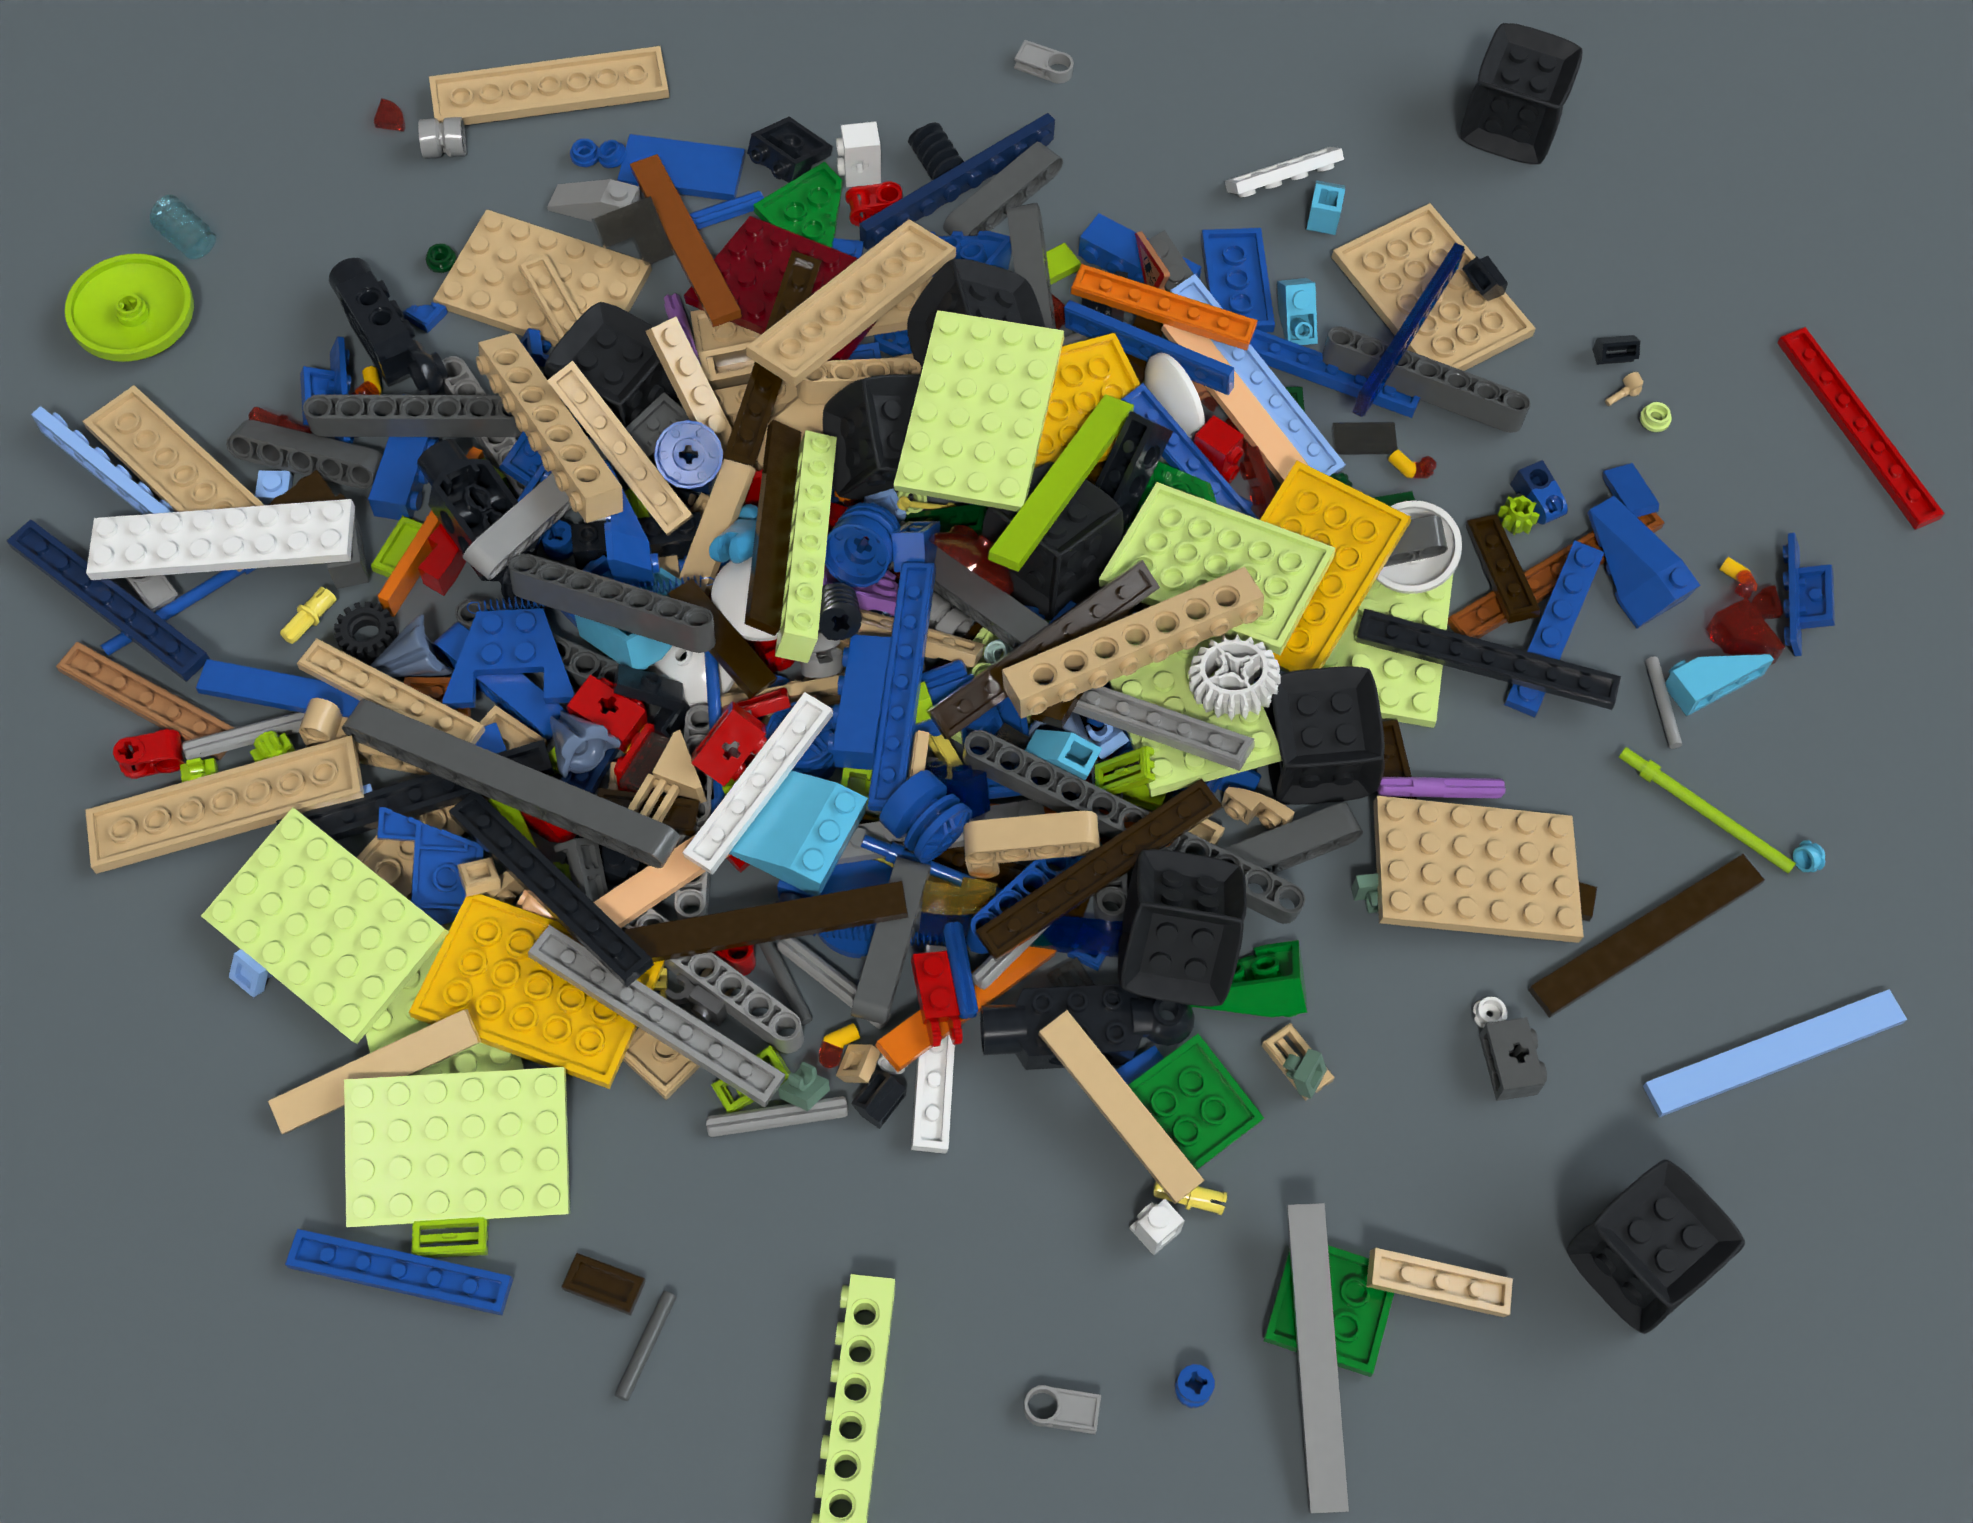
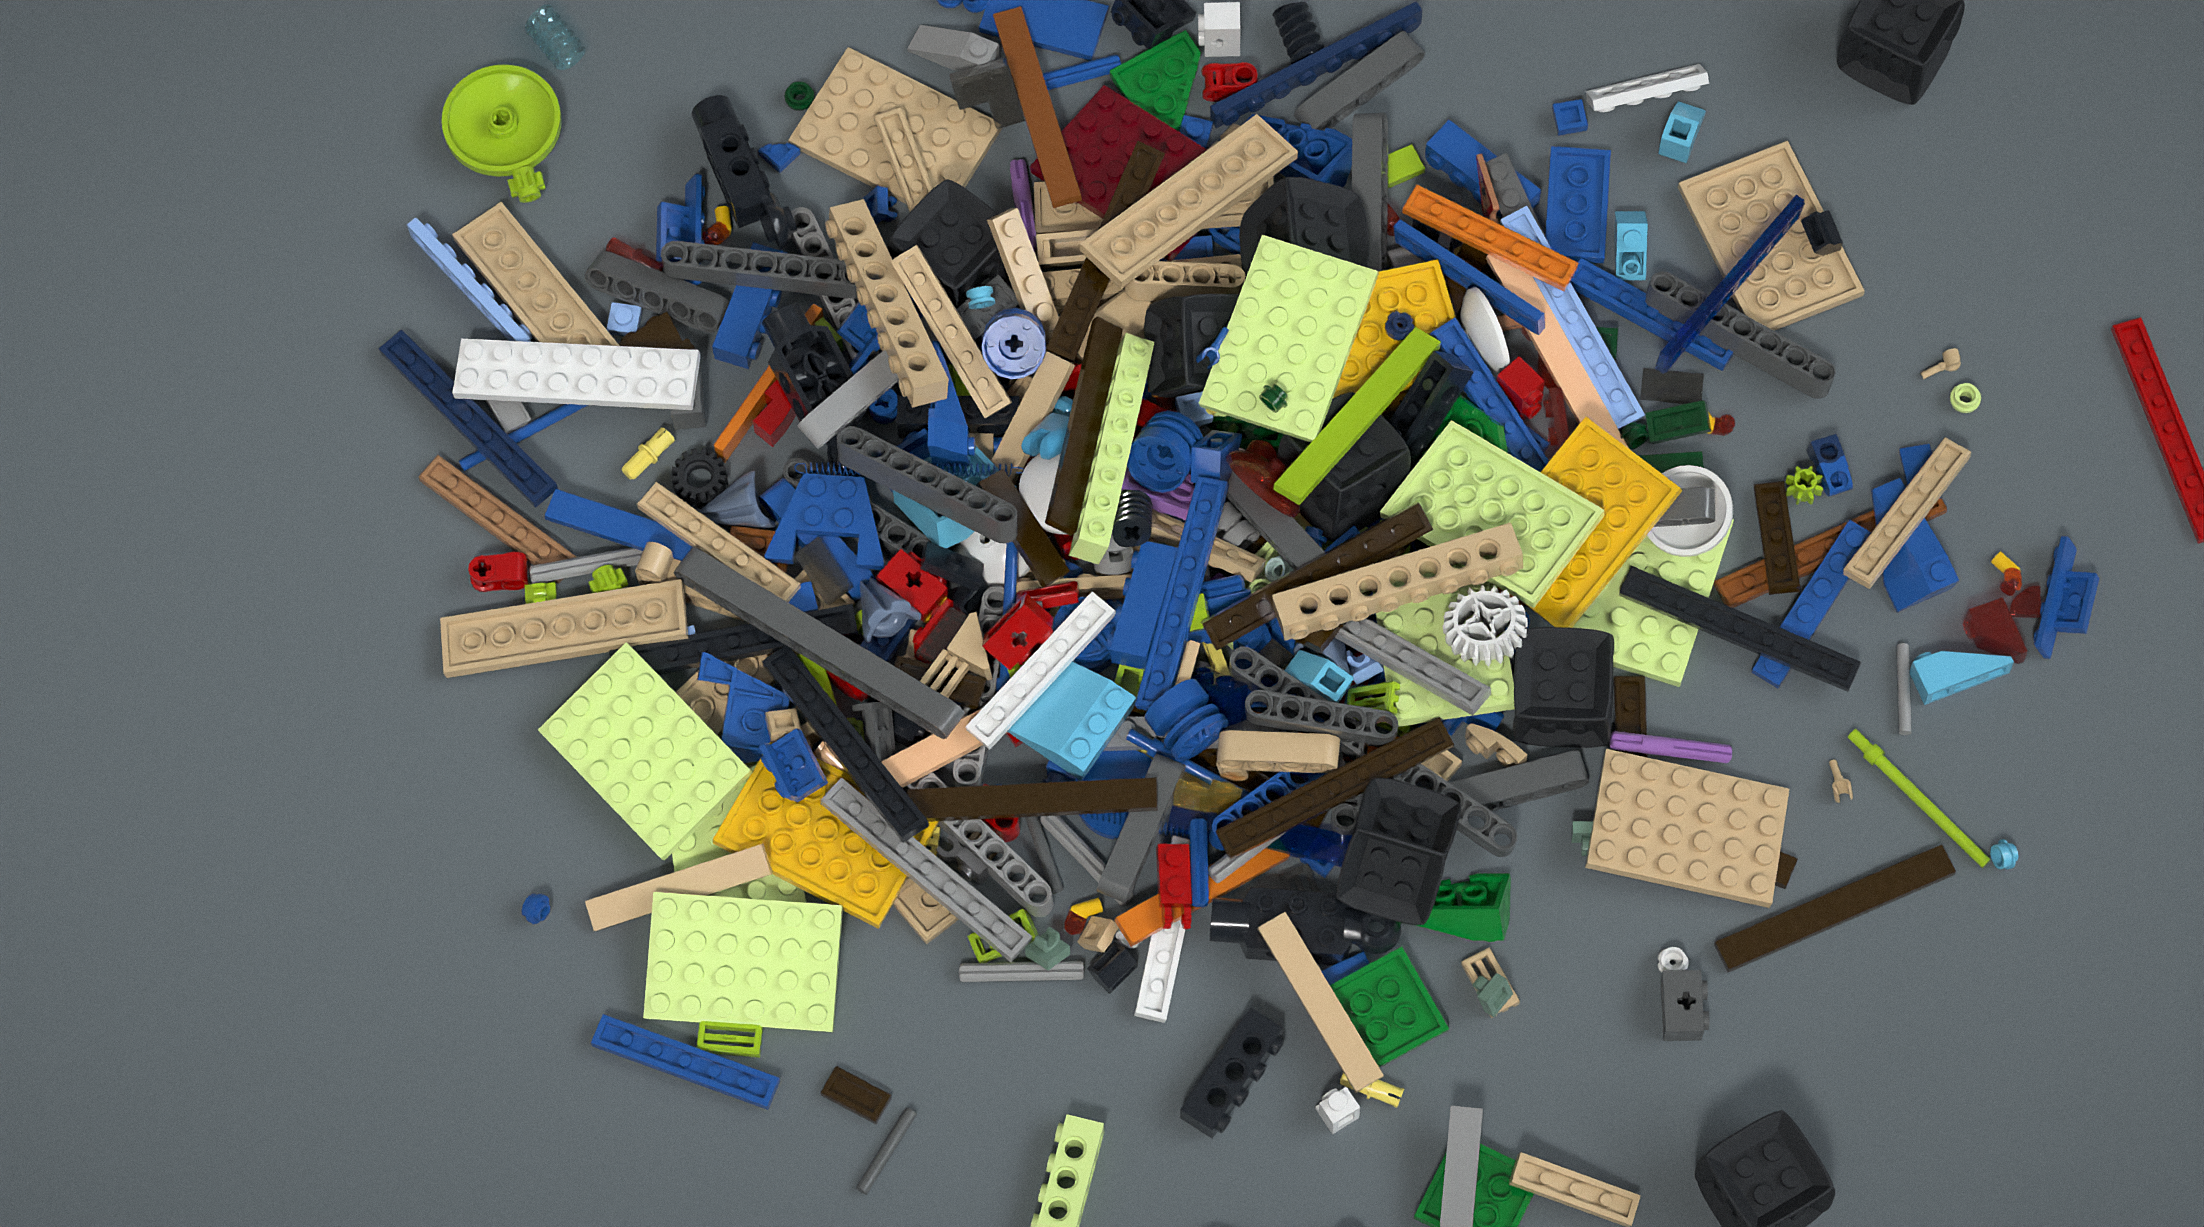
camera: 15 degrees right, 5 degrees up
(159, 365) = (526, 184): none -> lime gear
(211, 1116) = (536, 908): none -> blue plate
(248, 973) = (574, 786): light blue tile -> none
(395, 546) = (734, 394): lime tile -> none
(493, 919) = (793, 766): none -> blue bracket
(509, 710) = (824, 570): none -> clear smoke tile
(647, 413) = (980, 297): none -> medium azure bush
(900, 432) = (1212, 351): none -> blue hand
(974, 466) = (1273, 398): none -> dark green plate
(1047, 1148) = (1252, 1030): none -> black brick
(1082, 400) = (1392, 328): none -> dark blue plate
(1088, 784) = (1308, 707): none -> dark grey beam
(1214, 204) = (1569, 117): none -> blue plate
(1380, 467) = (1678, 422): none -> dark green plate
(1624, 805) = (1839, 785): none -> tan hand
(1628, 343) = (1942, 314): black piece -> none
(1632, 527) = (1907, 513): none -> tan tile
(1774, 1053) = (1927, 1030): light blue tile -> none

